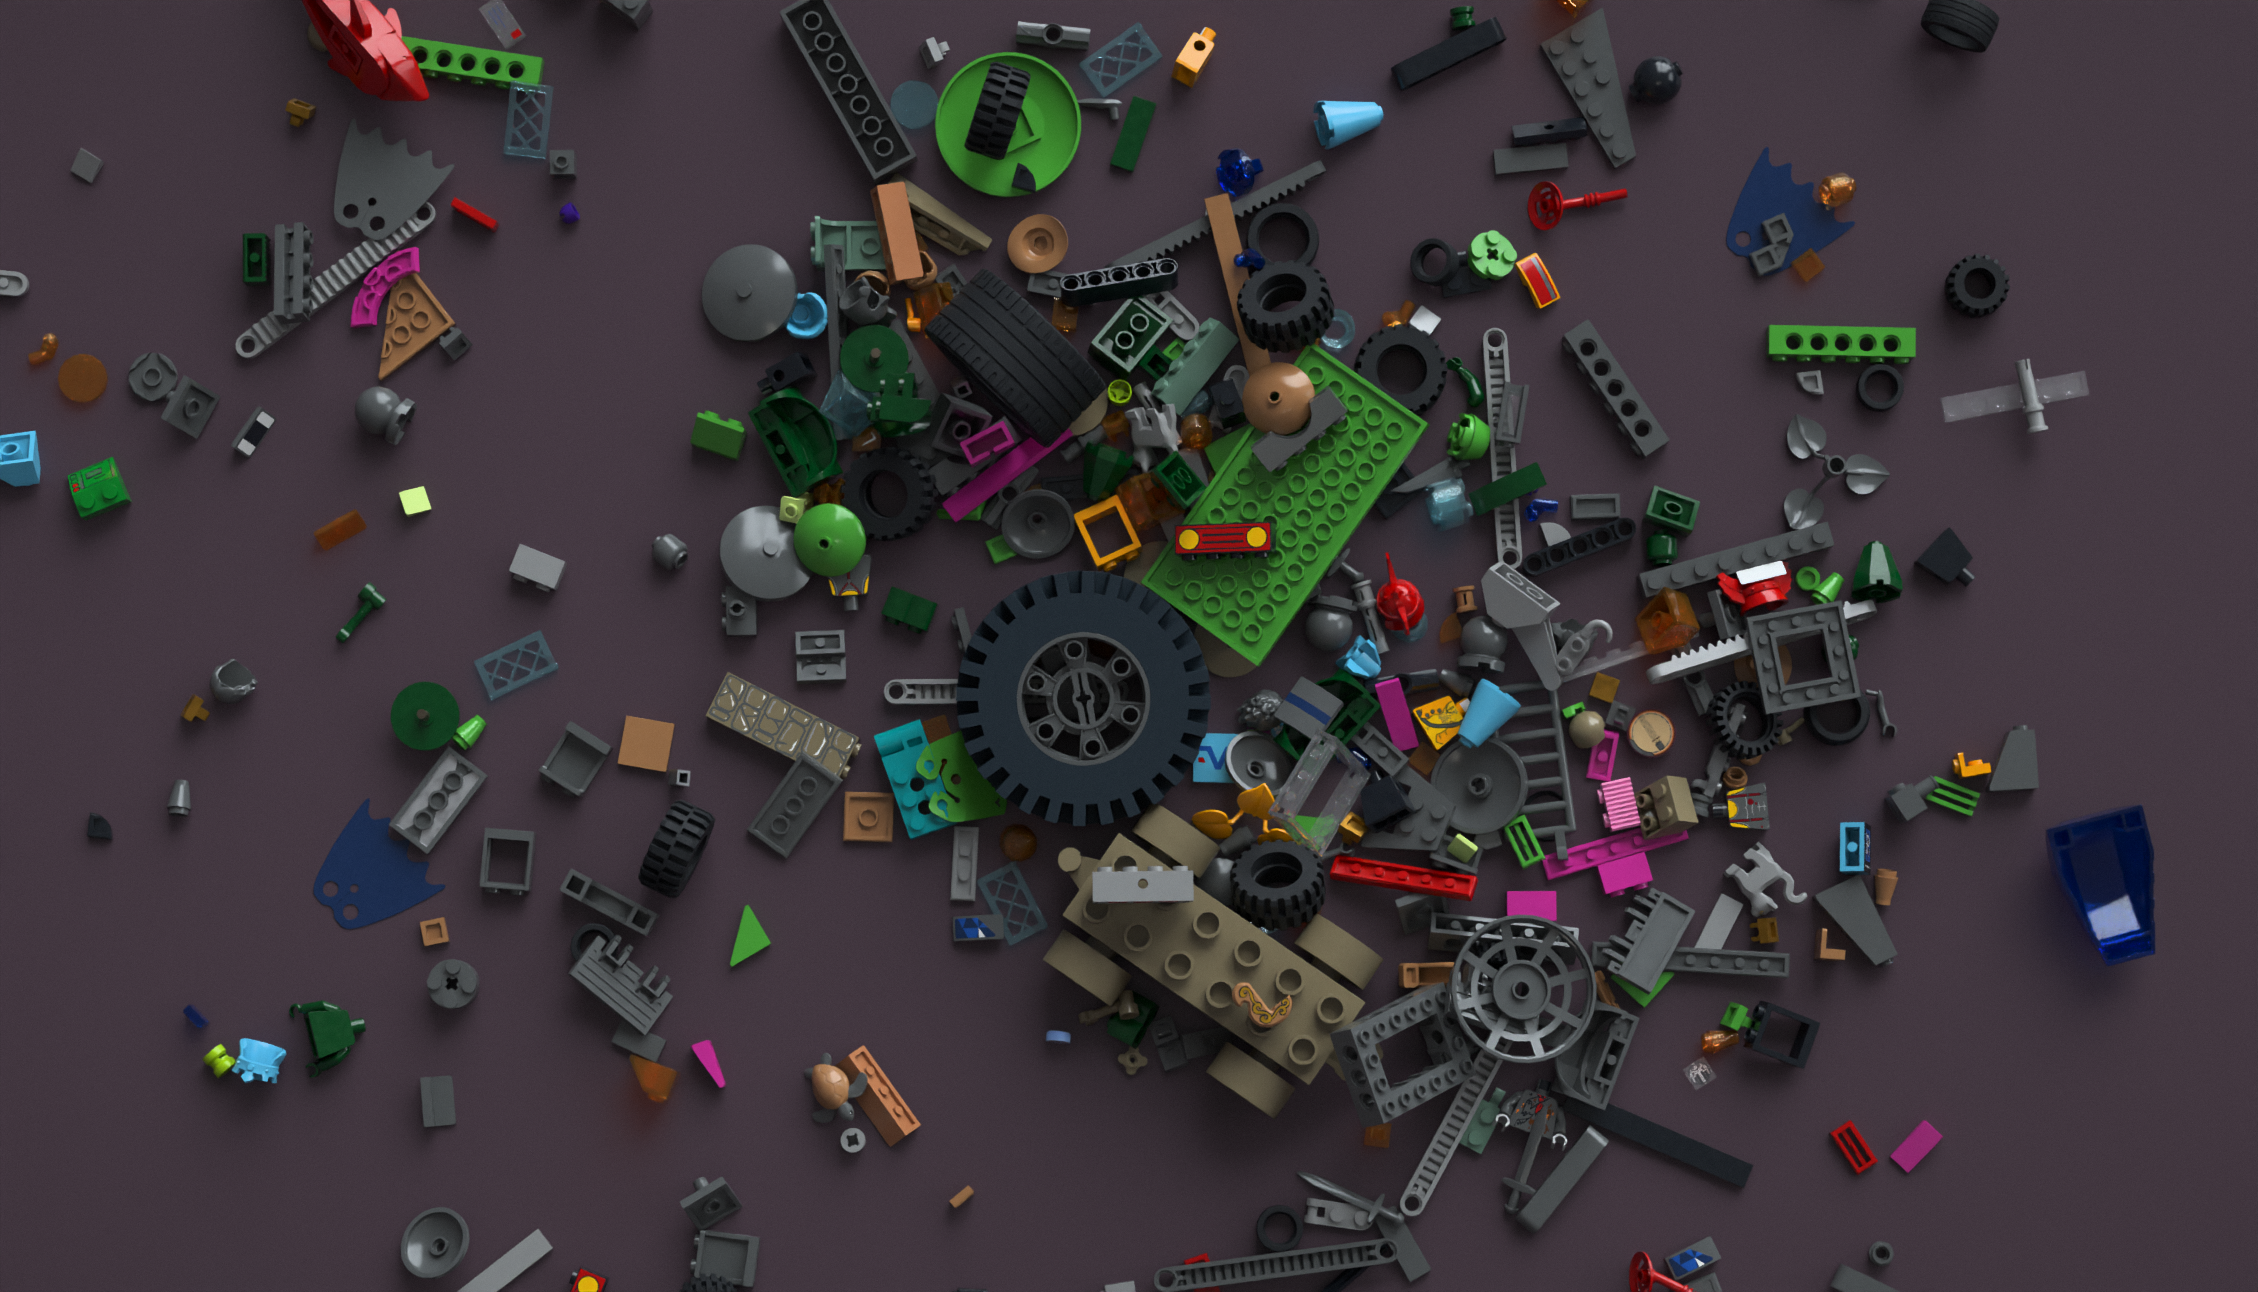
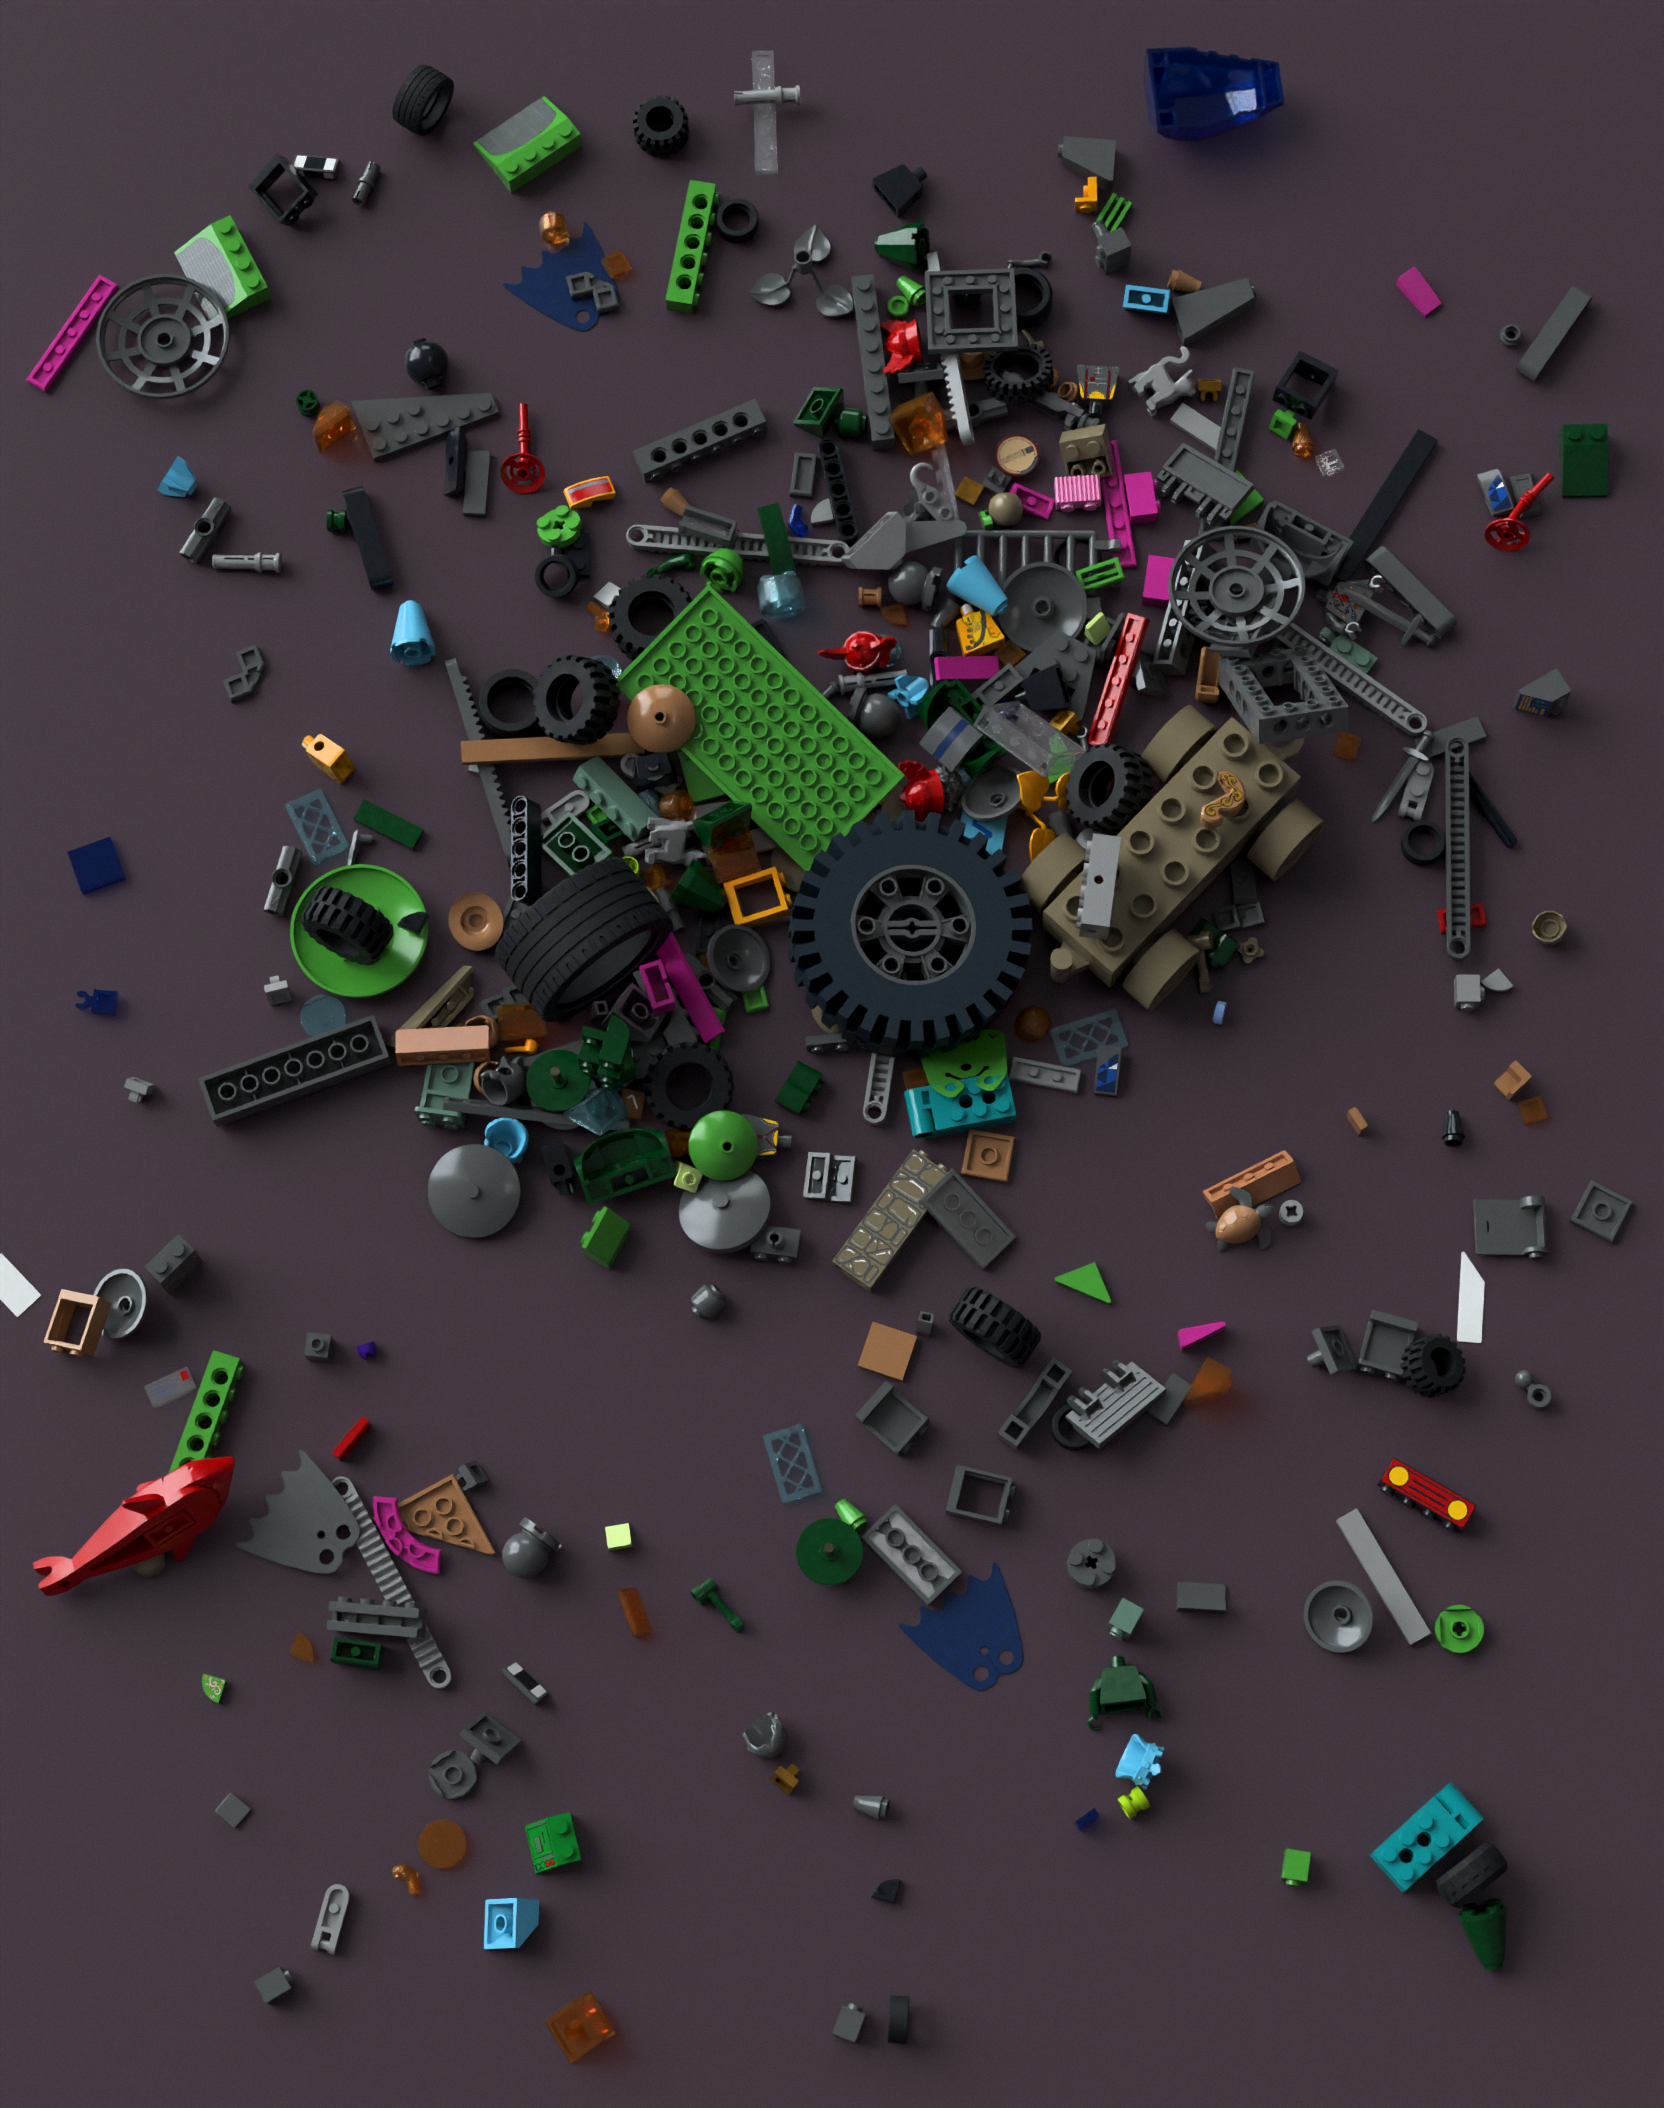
camera: 75 degrees left, 10 degrees down
(178, 1232) = (1295, 1867): none -> bright green brick
(205, 123) = (213, 1687): none -> bright green tile
(257, 204) = (302, 1648): none -> clear orange tile
(300, 111) = (219, 1592): pearl gold tile -> none
(399, 1025) = (1124, 1620): none -> sand green brick
(434, 931) = (1037, 1578): medium nougat tile -> none
(537, 567) = (702, 1427): light grey brick -> none
(546, 110) = (294, 1399): clear light blue window -> none
(1225, 540) = (783, 785): brick -> none
(1237, 171) = (441, 735): clear blue tile -> none
(1244, 685) = (923, 790): none -> red helmet
(1248, 258) = (524, 730): clear blue arm -> none
(1275, 448) = (681, 674): dark grey arch -> none
(1441, 471) = (750, 602): dark grey bar -> none
(1540, 375) = (674, 501): none -> medium nougat cone
(1761, 572) = (888, 336): white sticker -> none
(1811, 382) = (722, 278): light grey tile -> none
(1821, 952) = (1231, 339): medium nougat panel -> none
(1834, 1134) = (1413, 353): red tile -> none
(1936, 144) = (529, 143): none -> bright green slope

